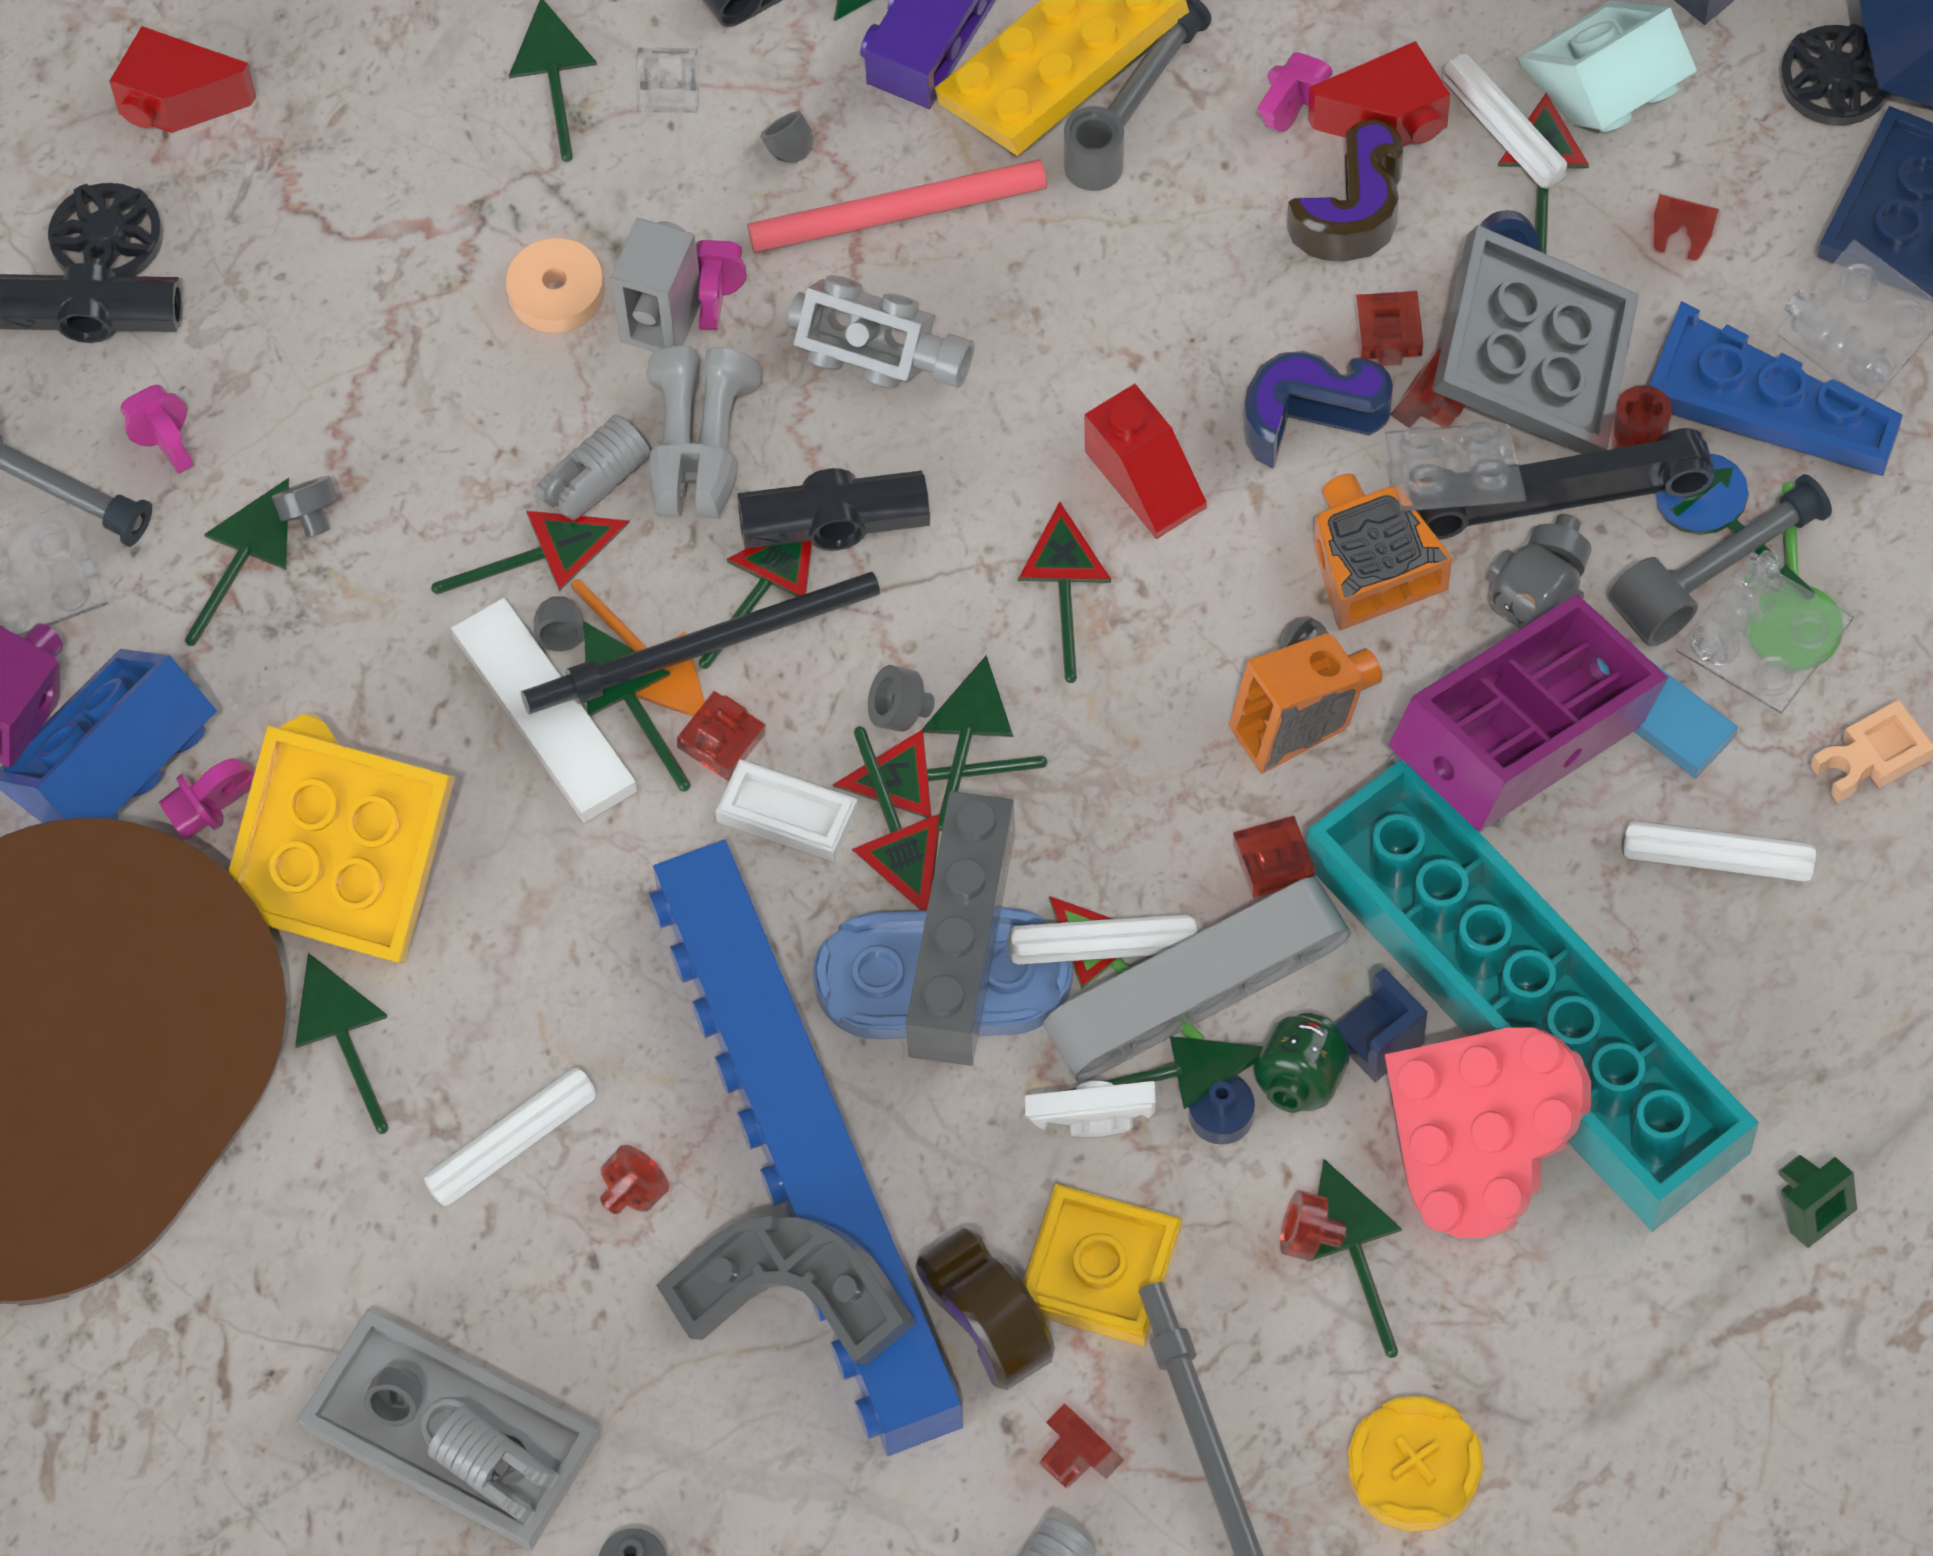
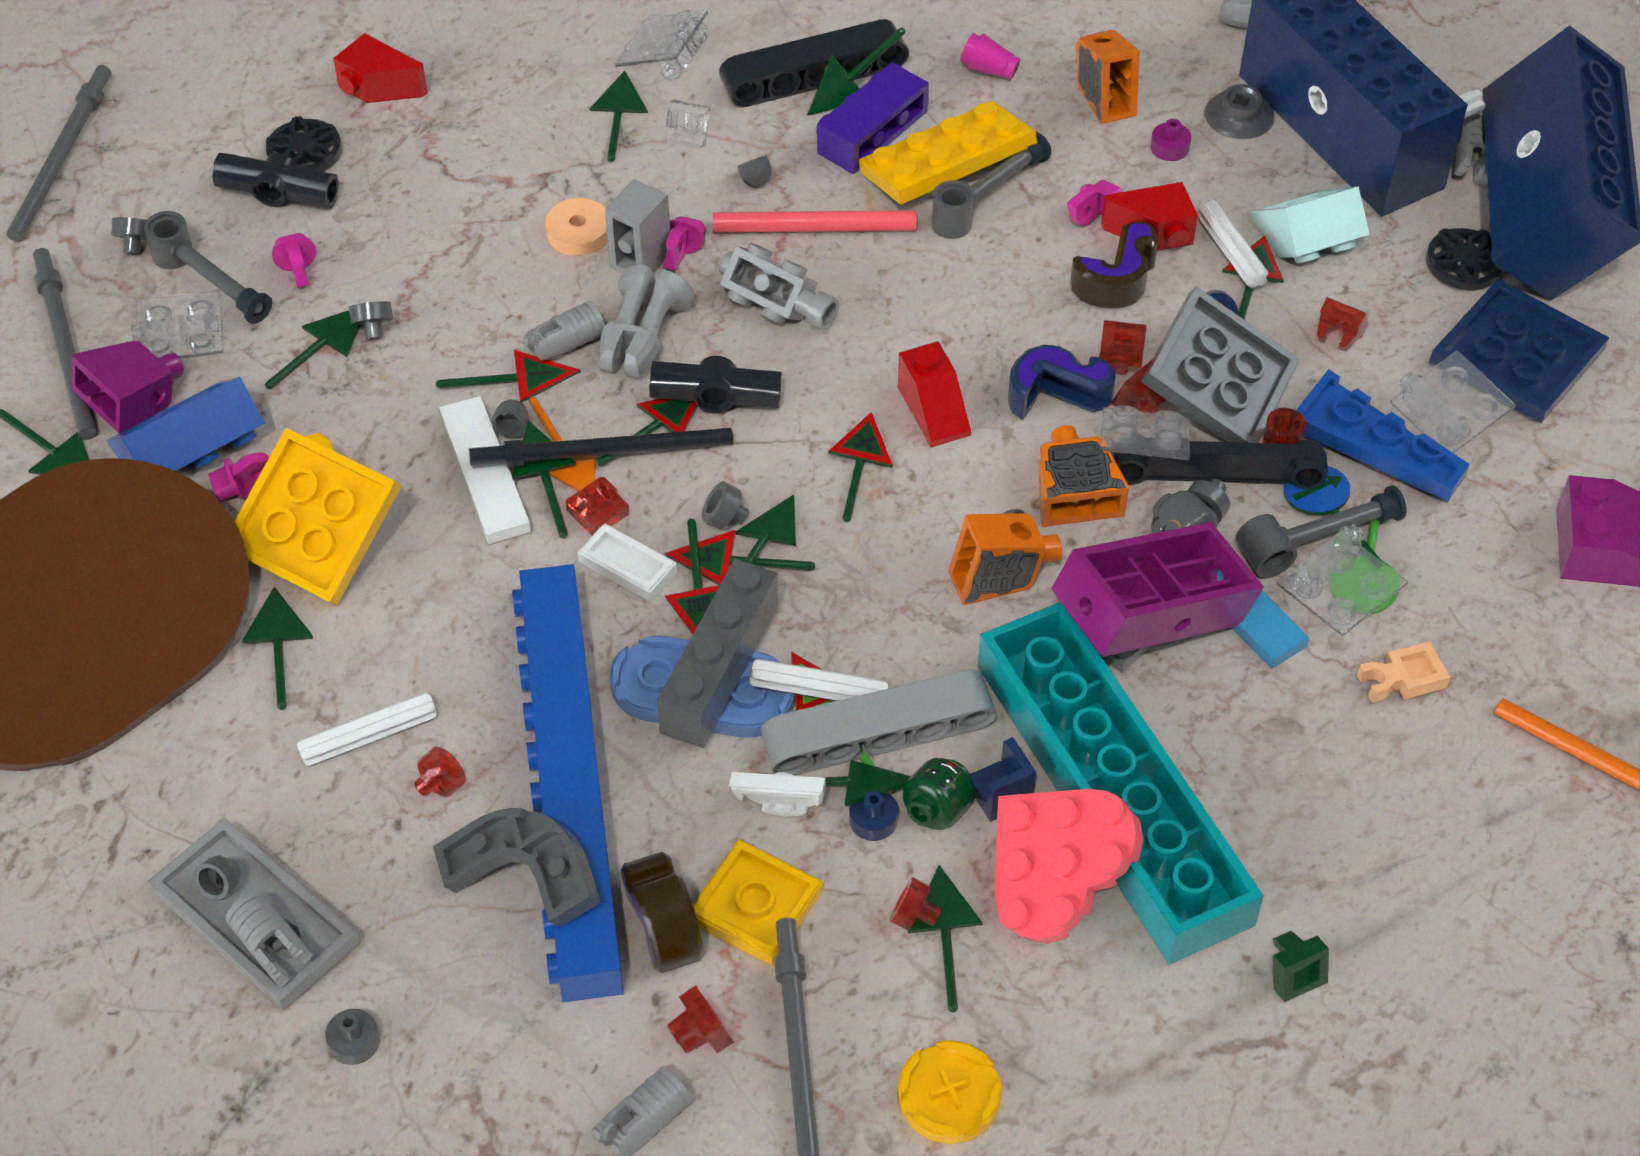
camera: 10 degrees right, 10 degrees down
(1273, 856) = (953, 651): clear red tile -> none
(1719, 851) = (1278, 717): white axle -> none

